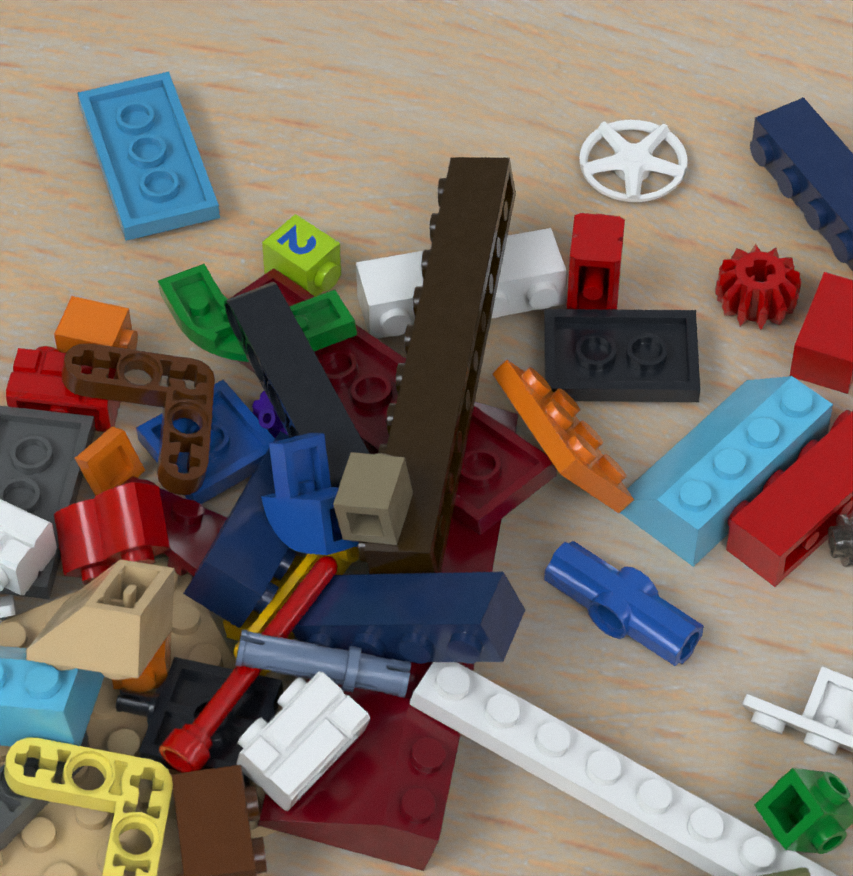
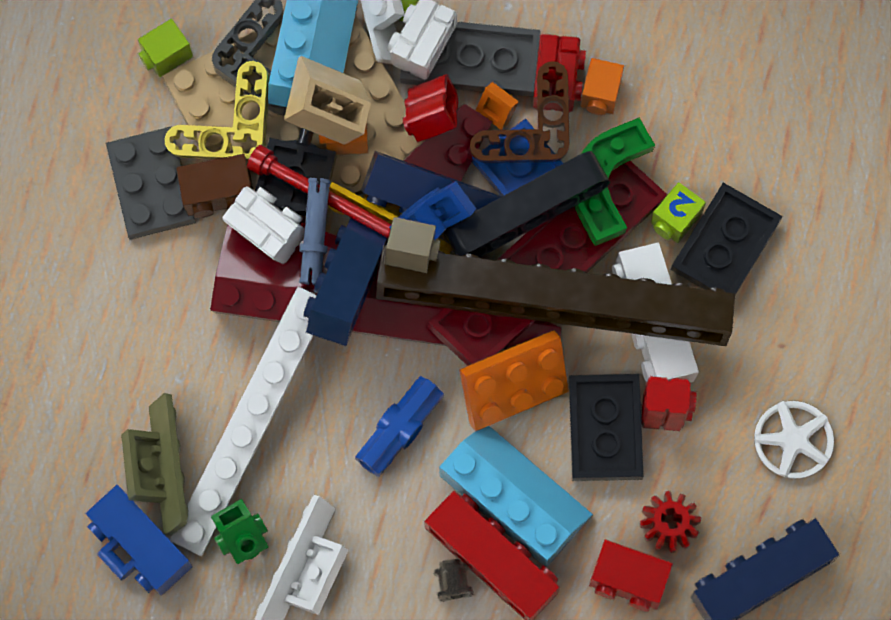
camera: 90 degrees right, 20 degrees up
(148, 156) = (771, 105): dark azure plate -> none
(352, 206) = (726, 241): none -> black plate

